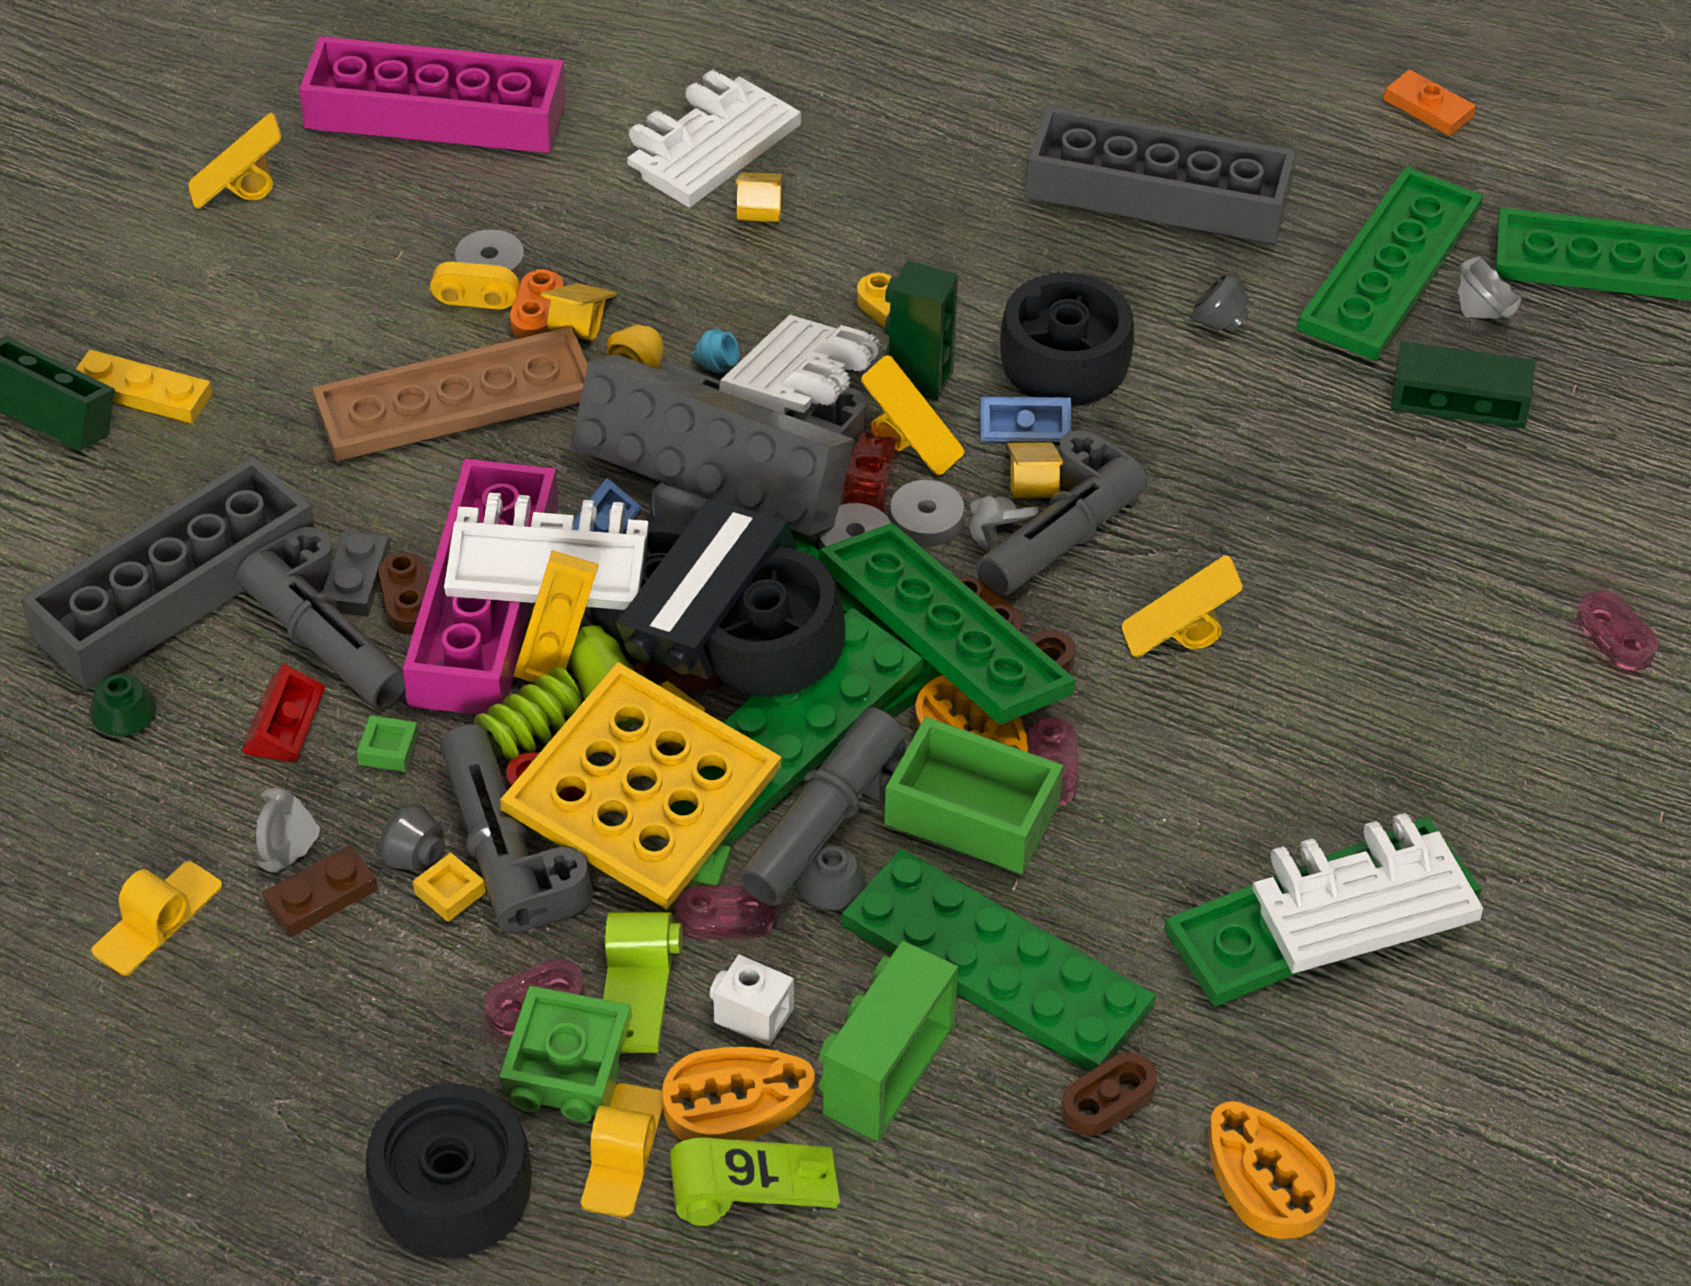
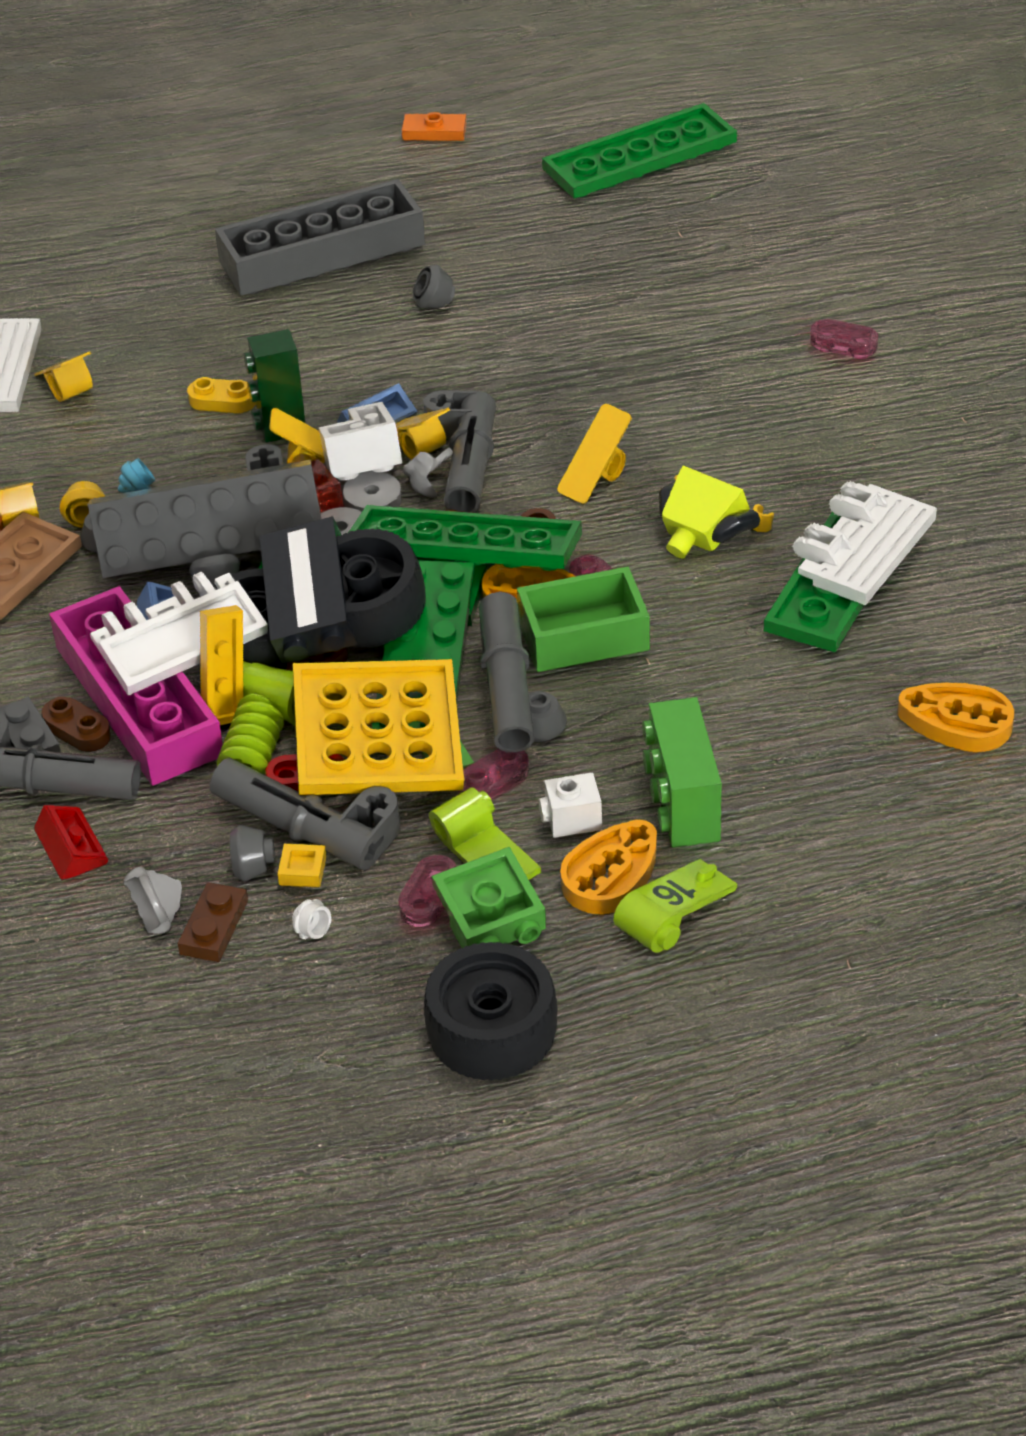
camera: 35 degrees left, 5 degrees down
(152, 913) = (111, 1006): yellow piece -> none
(387, 743) = (166, 811): bright green plate -> none
(405, 960) = (311, 919): none -> white plate
(621, 1149) = (577, 940): yellow piece -> none
(800, 365) = (214, 448): white hinge -> none
(952, 449) = (362, 443): none -> white brick
(1002, 960) = (729, 698): green plate -> none
(1067, 337) = (360, 351): black wheel -> none
(1106, 1097) = (830, 729): reddish brown plate -> none
(1232, 752) = (706, 512): none -> neon yellow torso
(1390, 263) = (508, 220): green plate -> none
(1463, 384) = (621, 259): dark green brick -> none
(1484, 293) = (582, 208): light grey piece -> none

